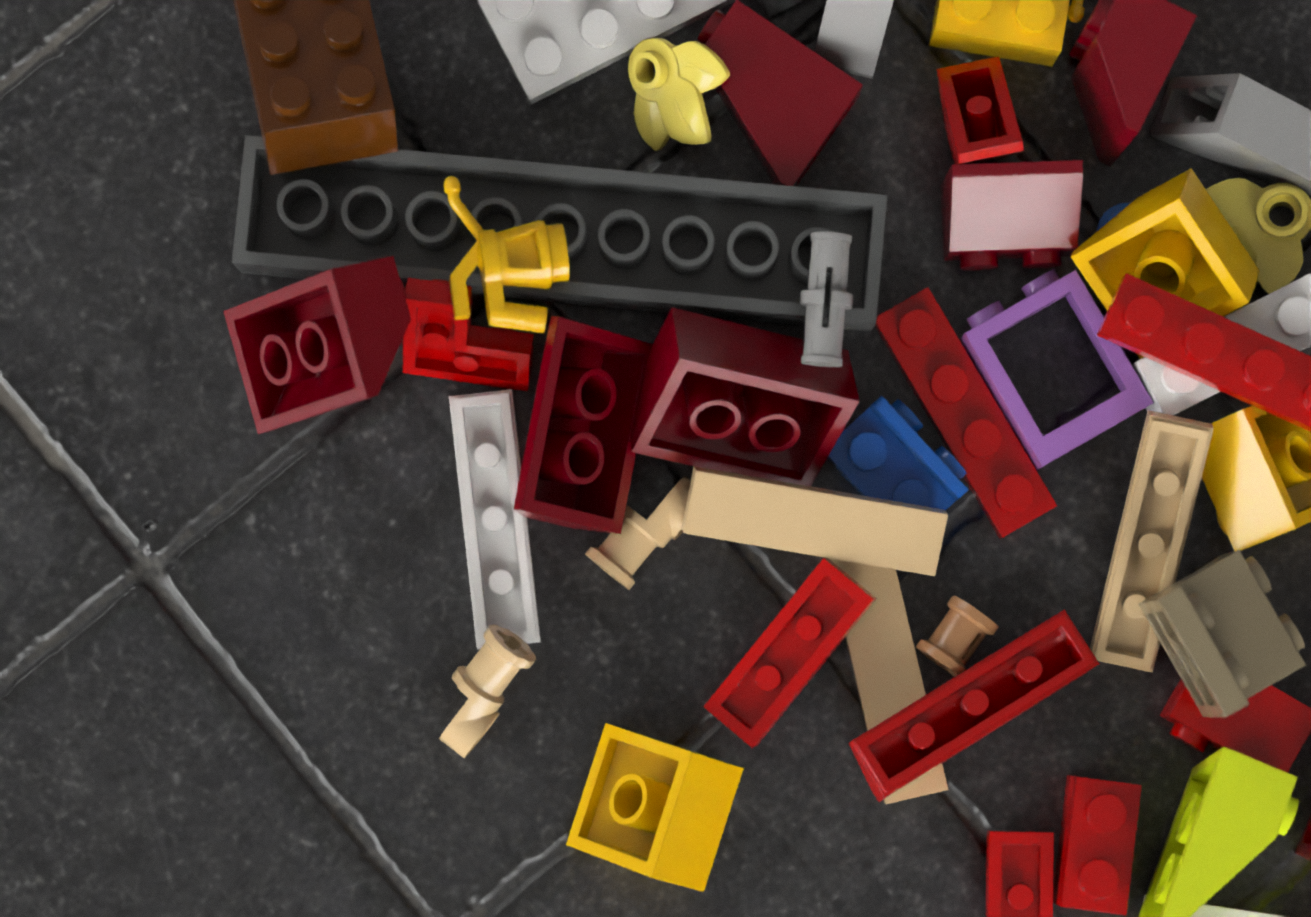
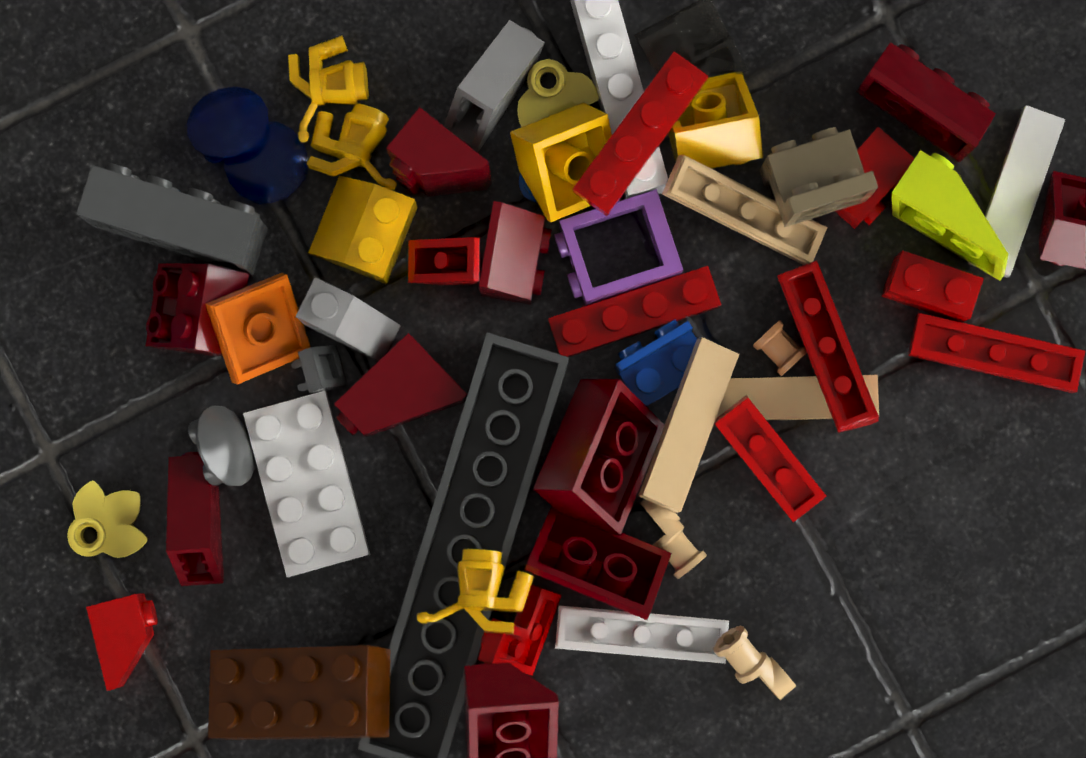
camera: 80 degrees left, 0 degrees up
(654, 807) = (852, 568): yellow slope -> none
(672, 98) = (389, 459): light yellow plate -> none
(830, 255) = (520, 377): light grey pin -> none

